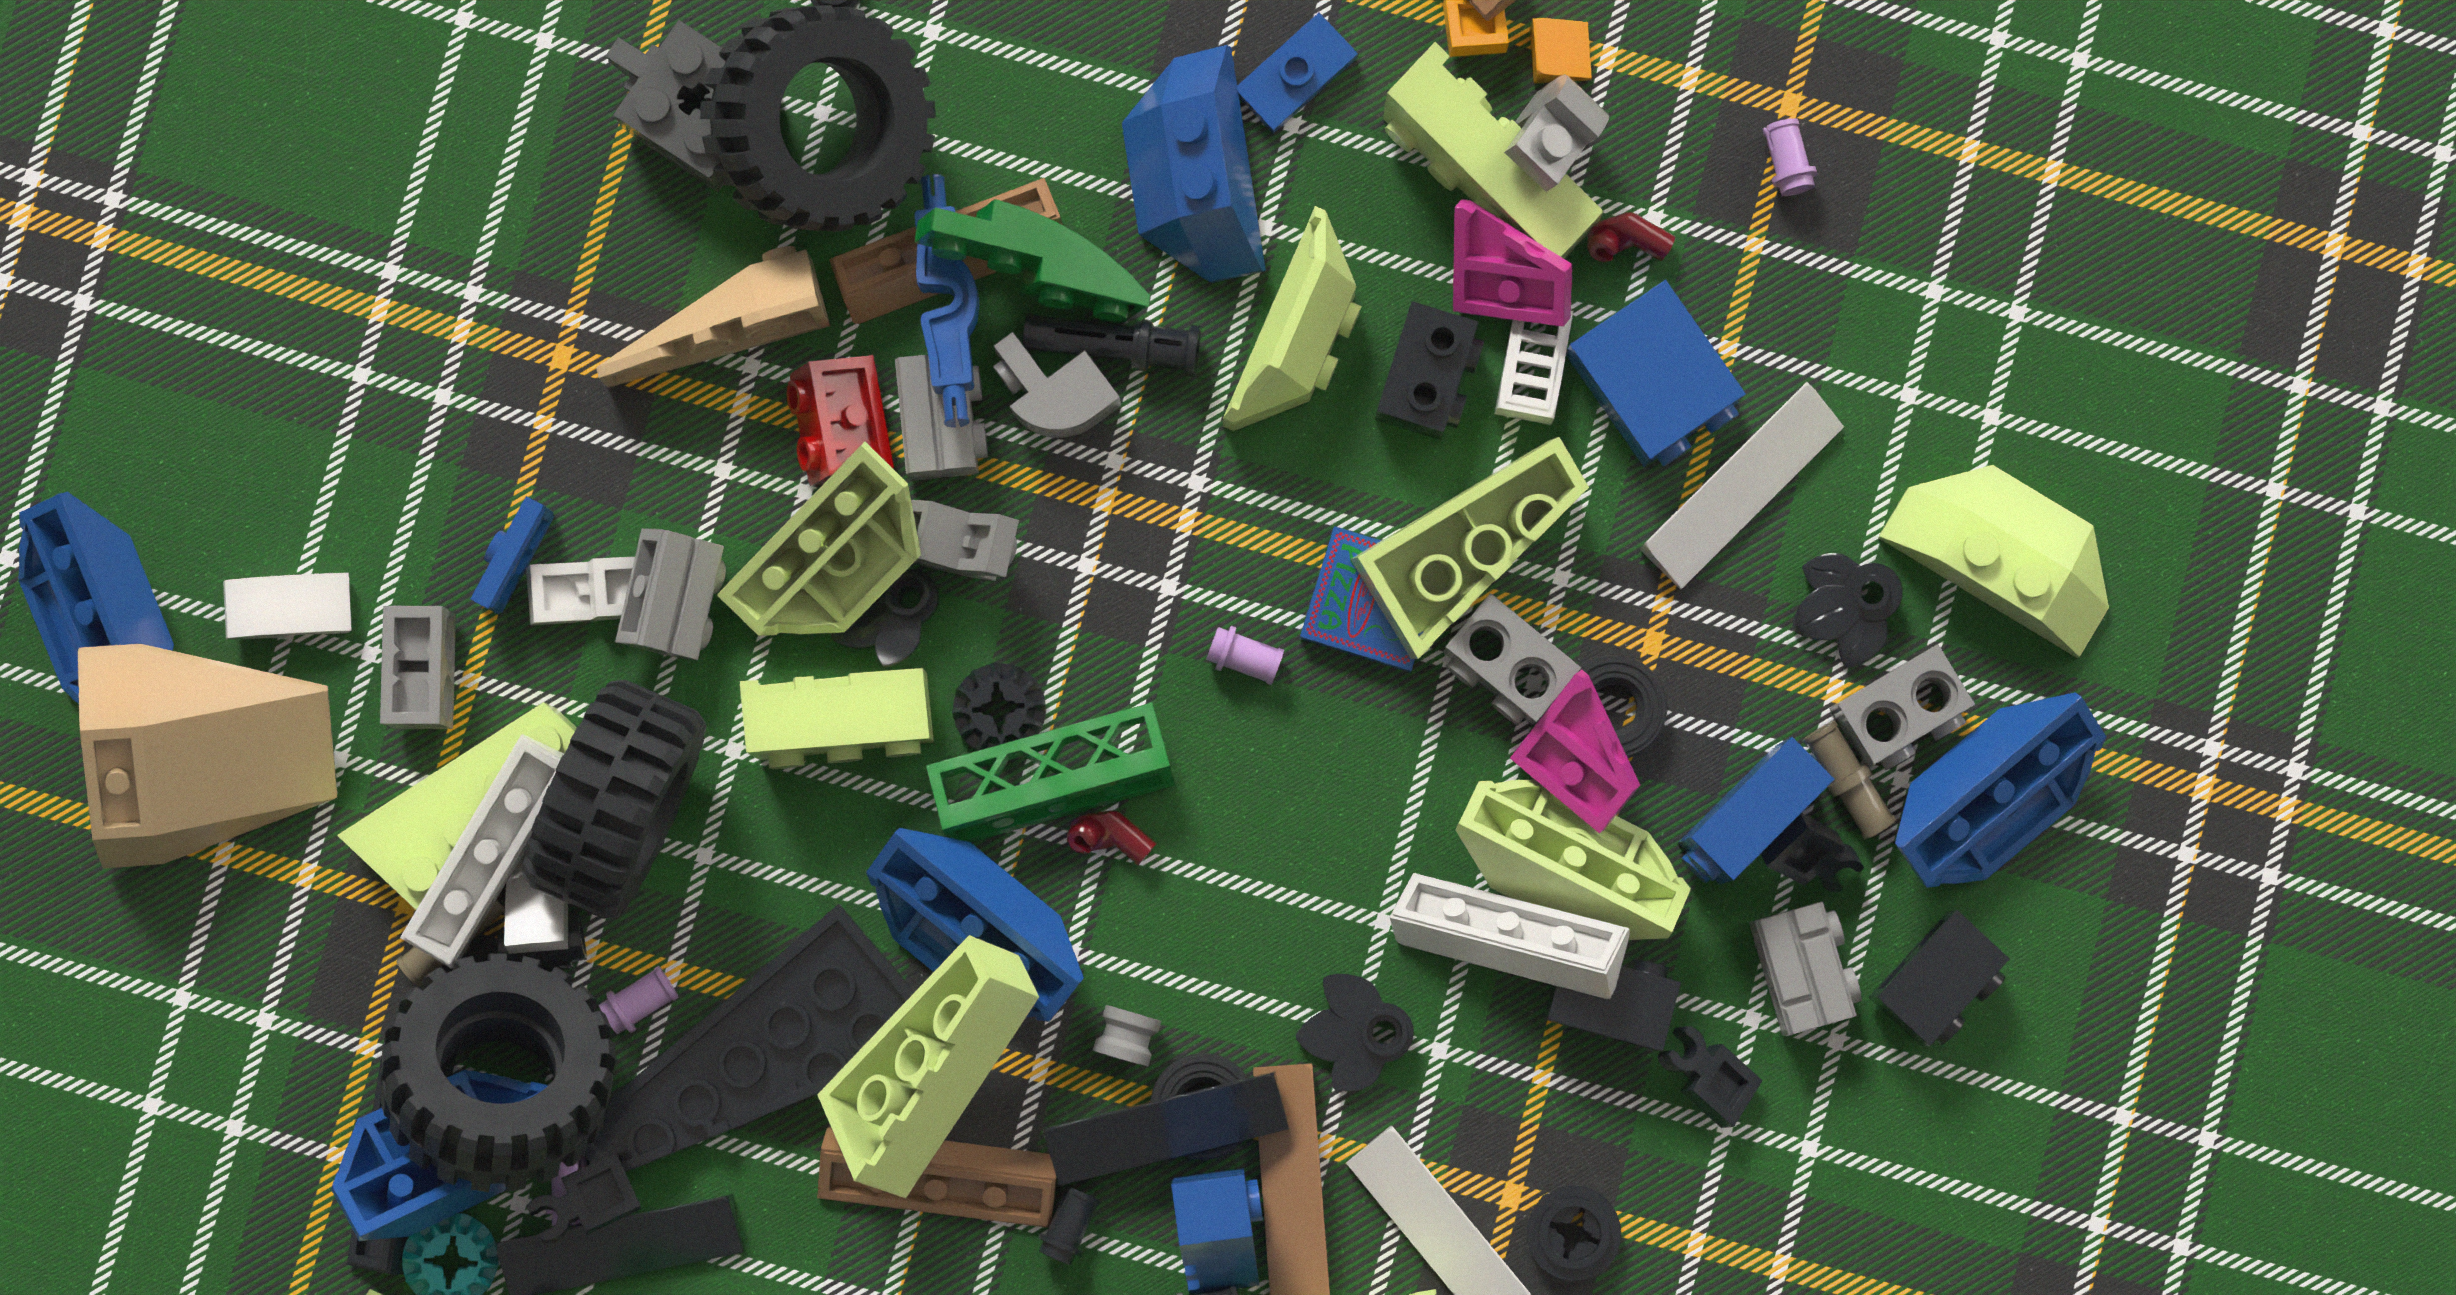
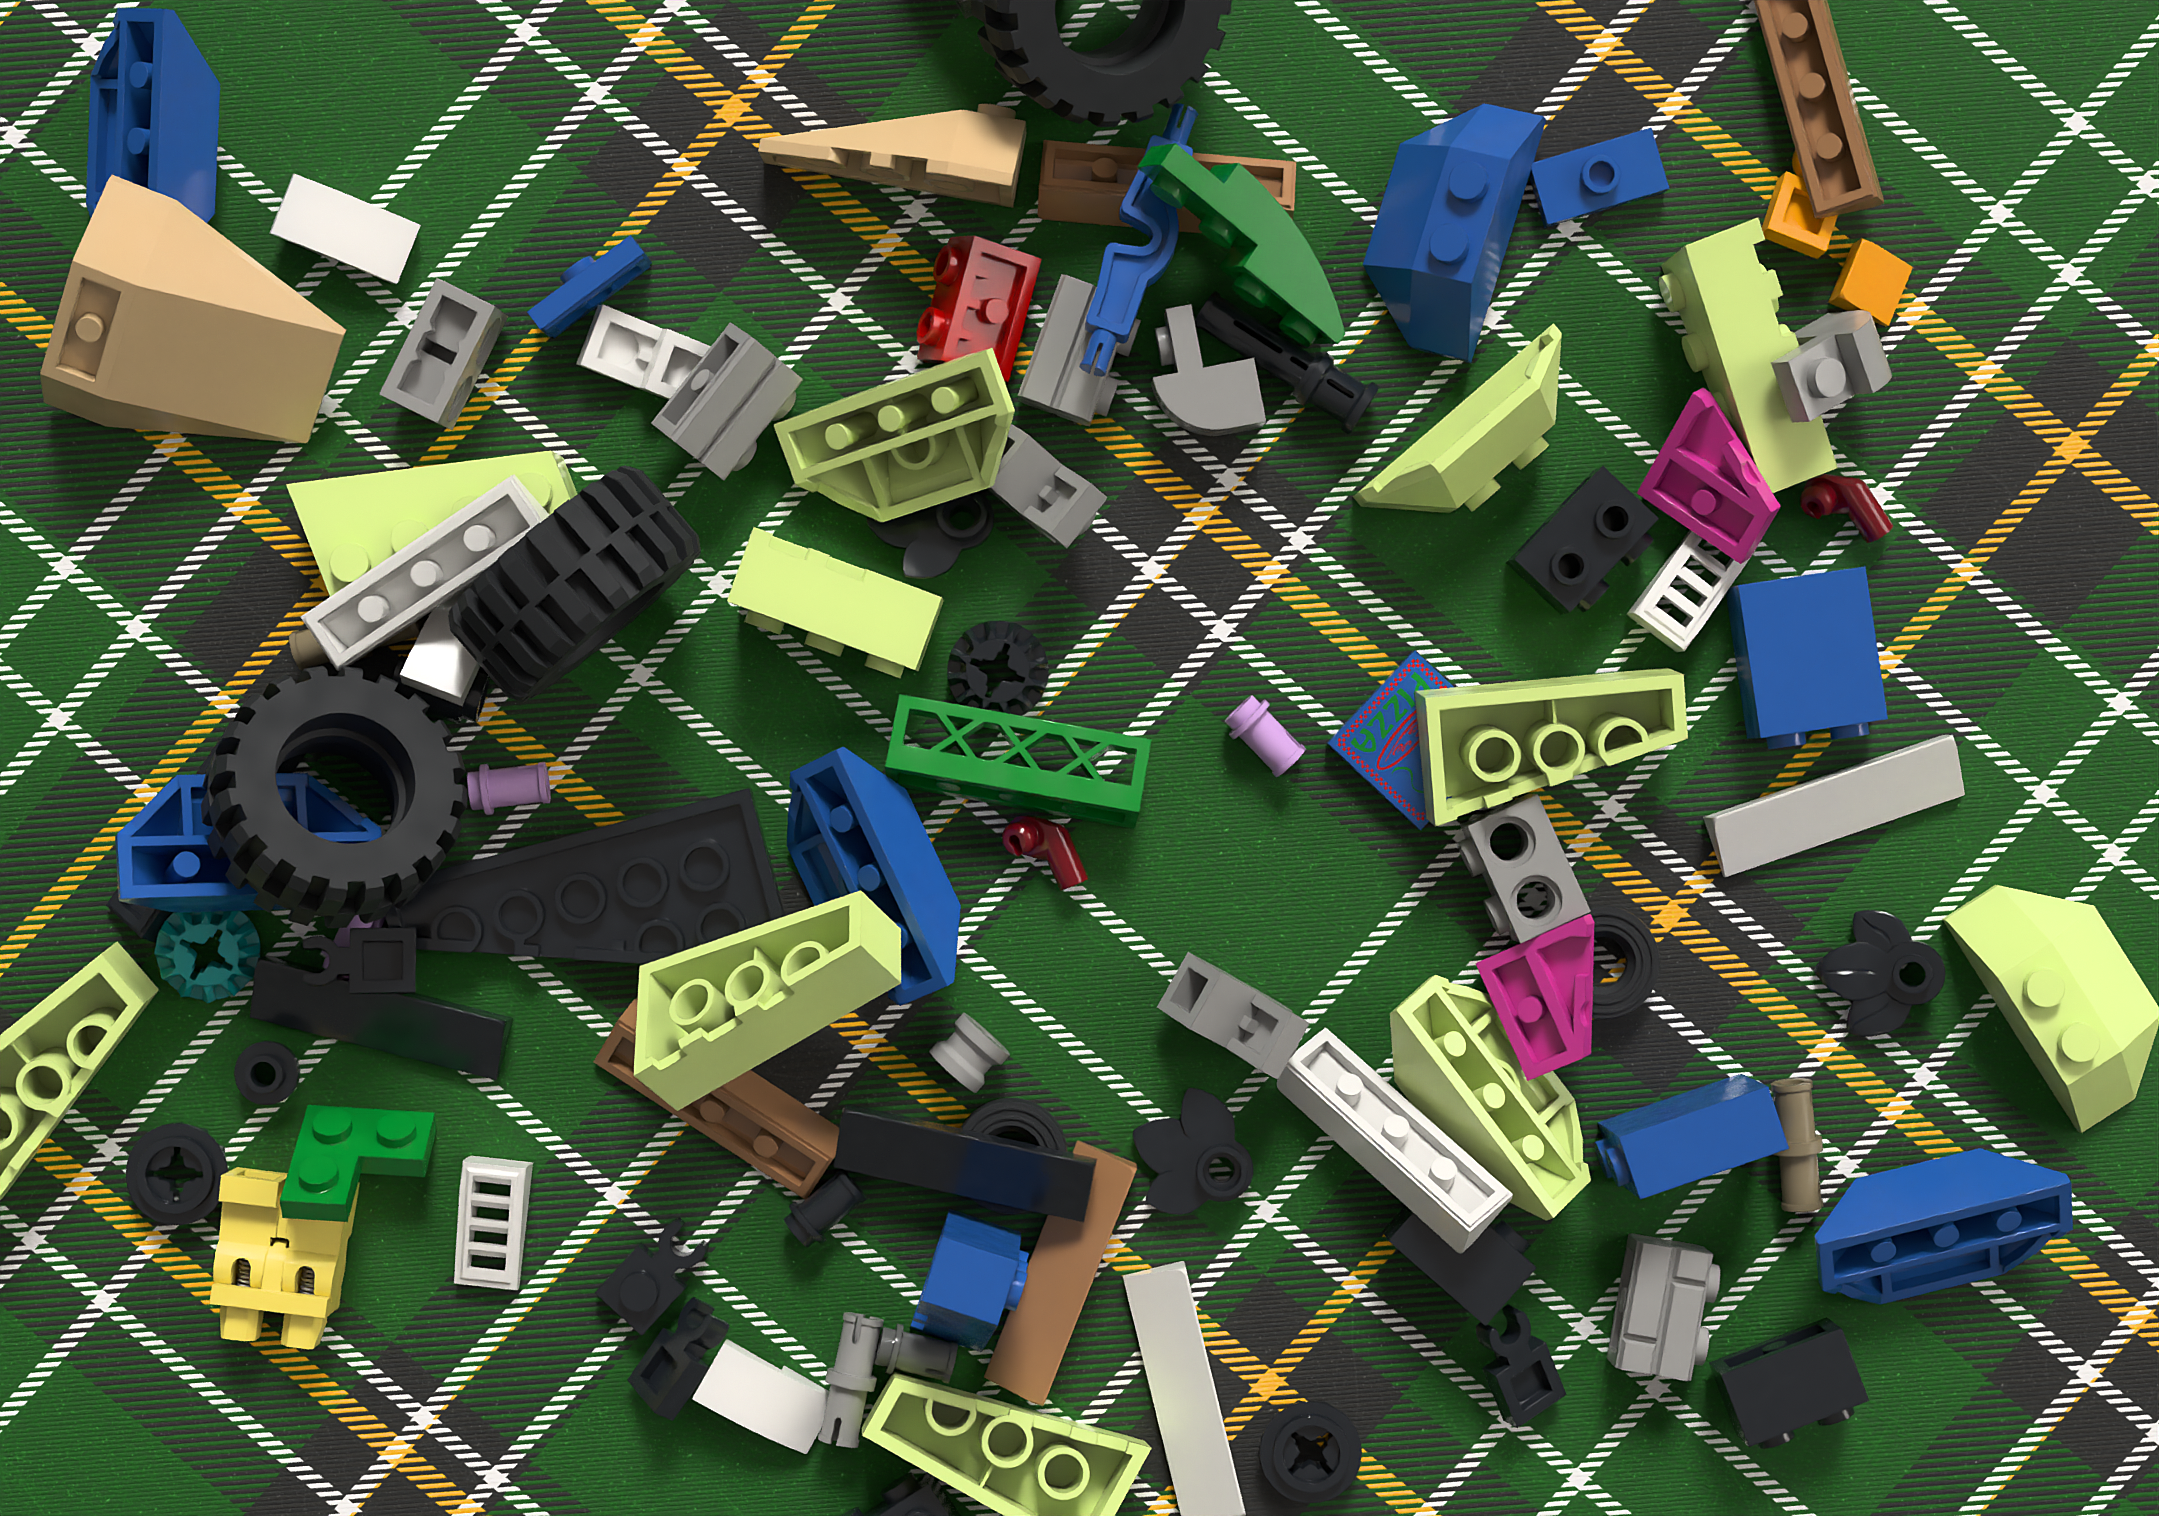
camera: 25 degrees right, 5 degrees up
(1329, 896) = (1233, 1015): none -> light grey brick
(1789, 157) = (2045, 501): lavender pin -> none
(1810, 850) = (1726, 1201): black plate -> none
(1897, 698) = (1885, 1087): light grey brick -> none

